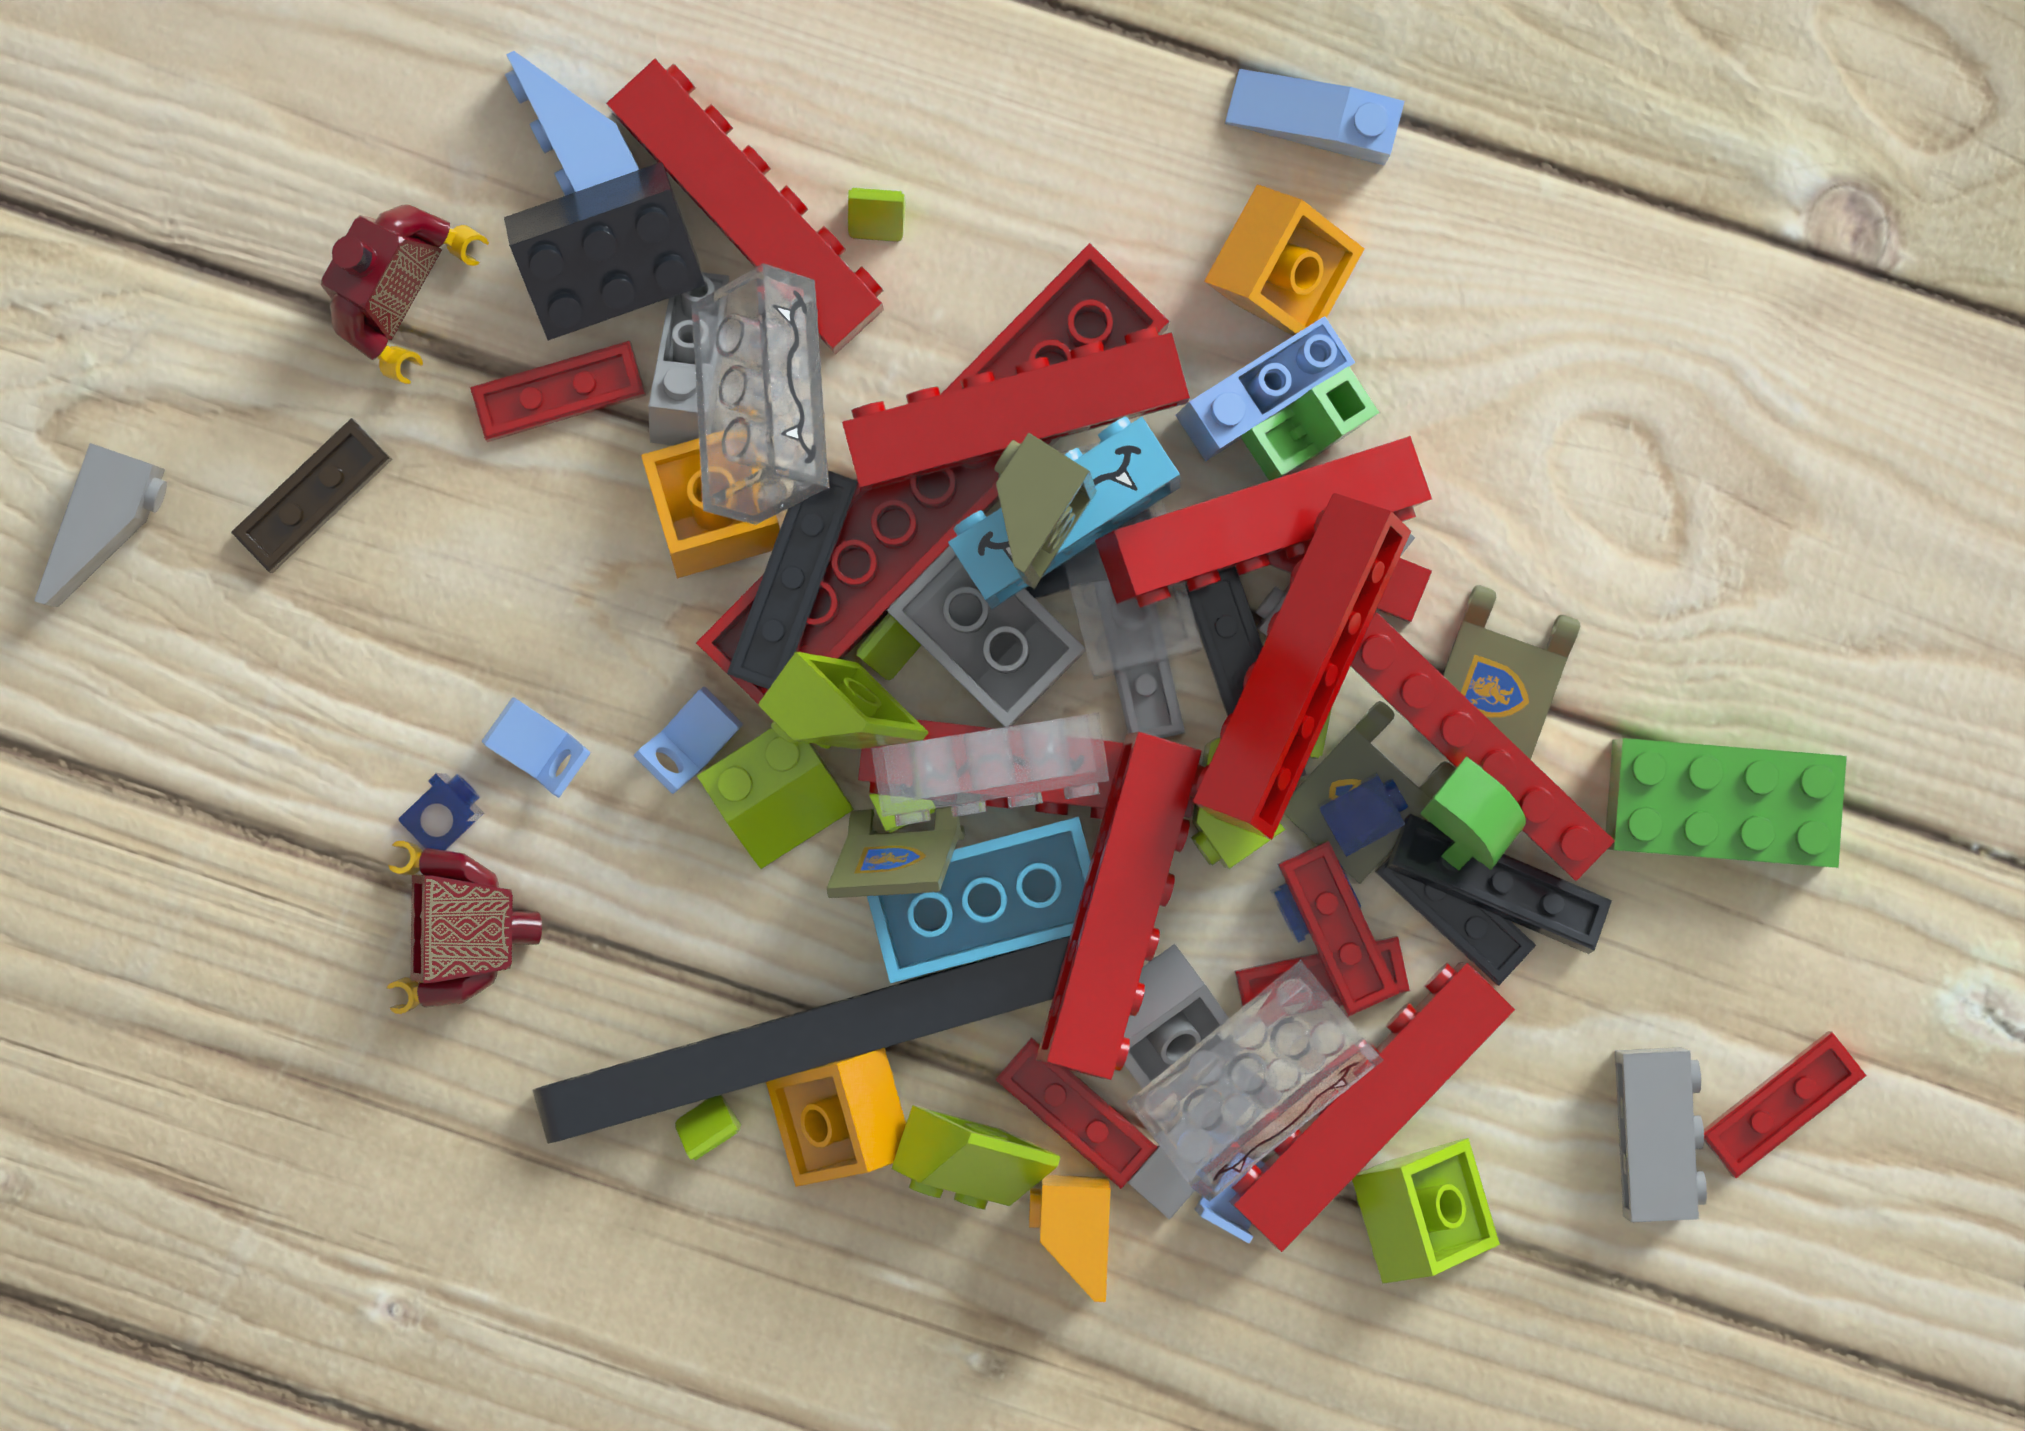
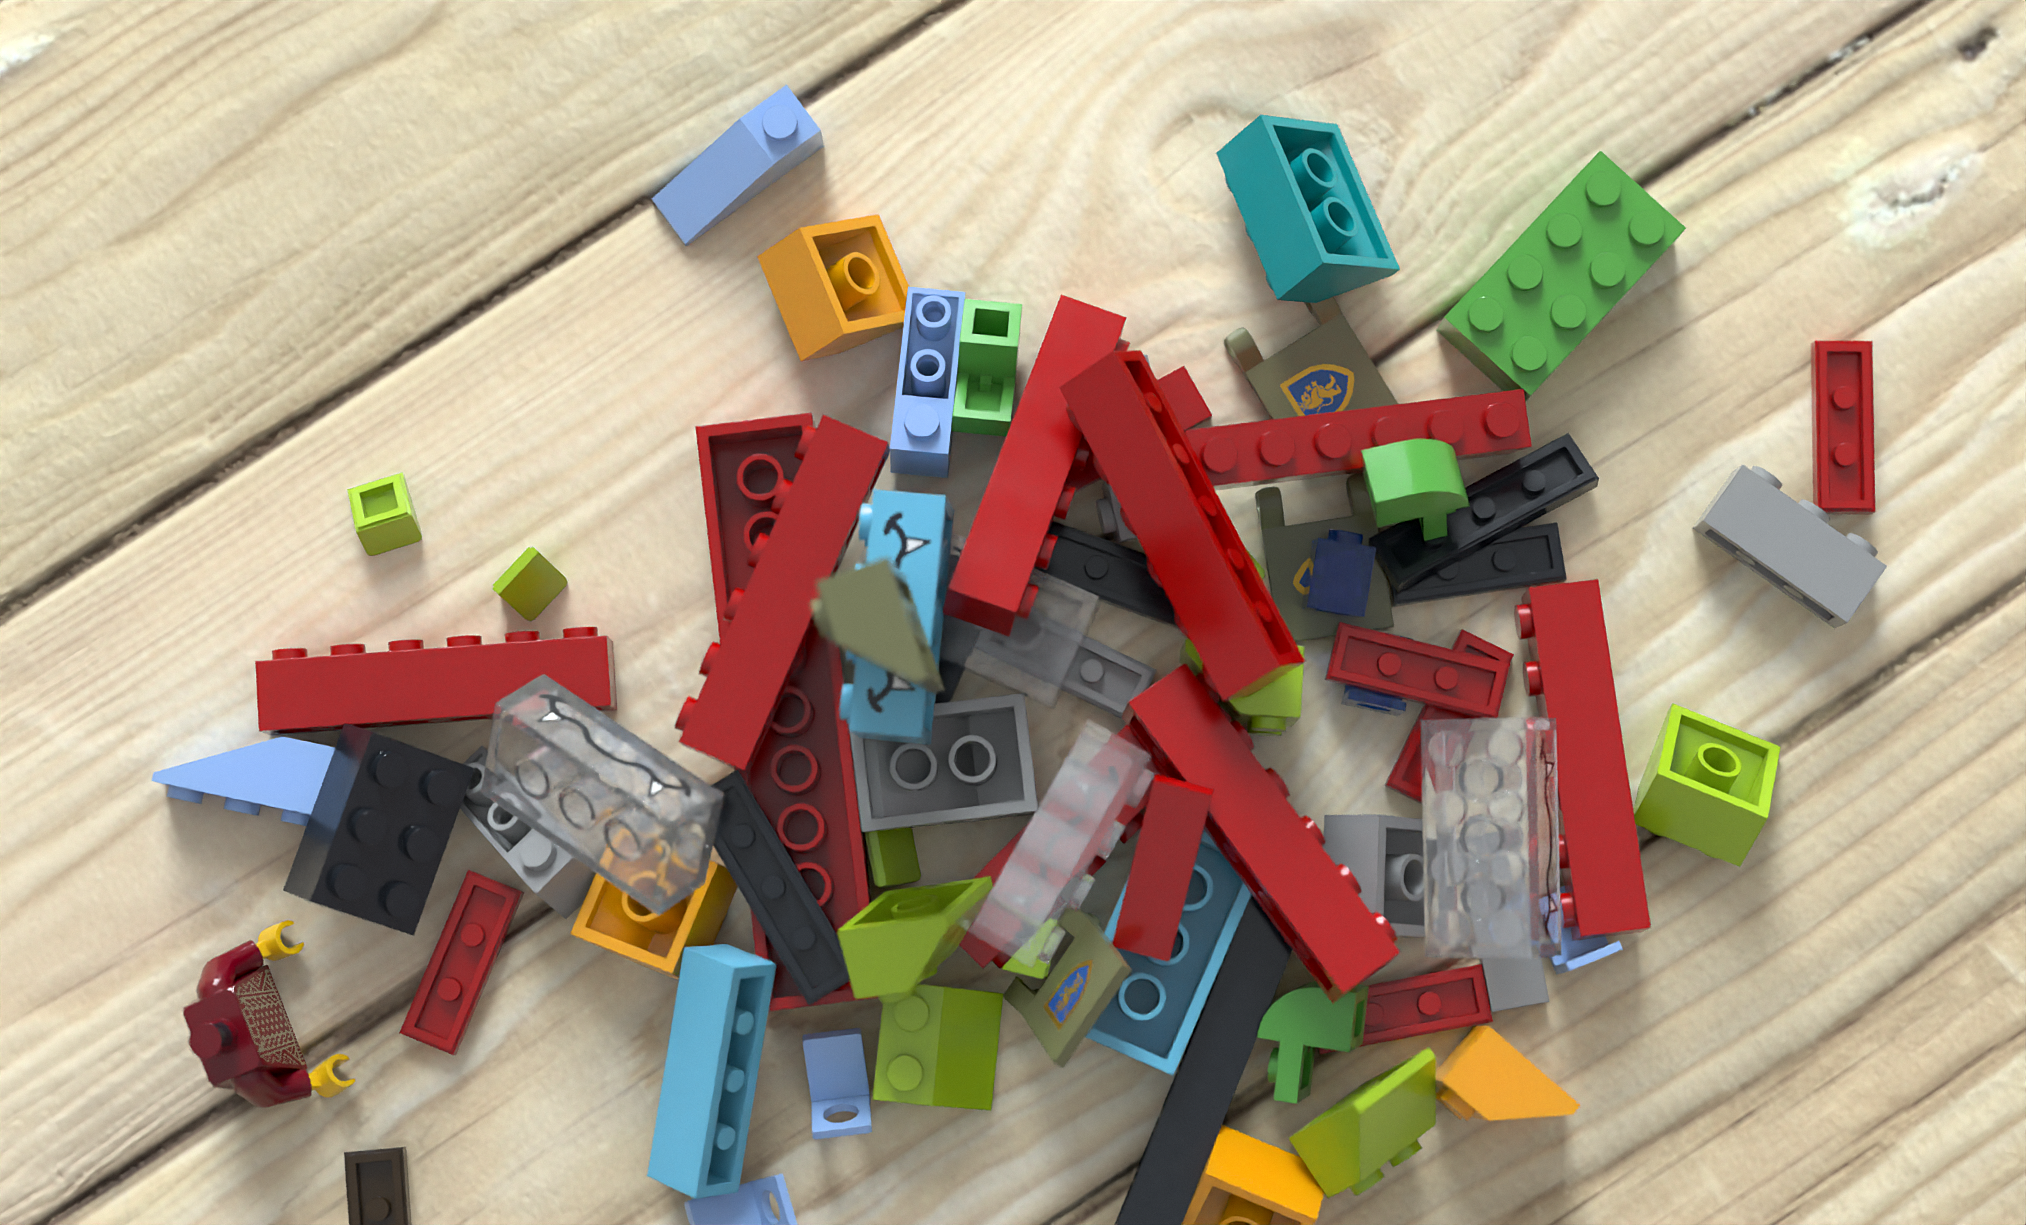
camera: 55 degrees left, 5 degrees down
(623, 639) = (711, 1070): none -> medium azure brick
(841, 63) = (384, 514): none -> lime slope
(1003, 1049) = (1307, 1021): none -> bright green brick
(1035, 854) = (1162, 867): none -> red tile
(1624, 568) = (1305, 208): none -> teal slope

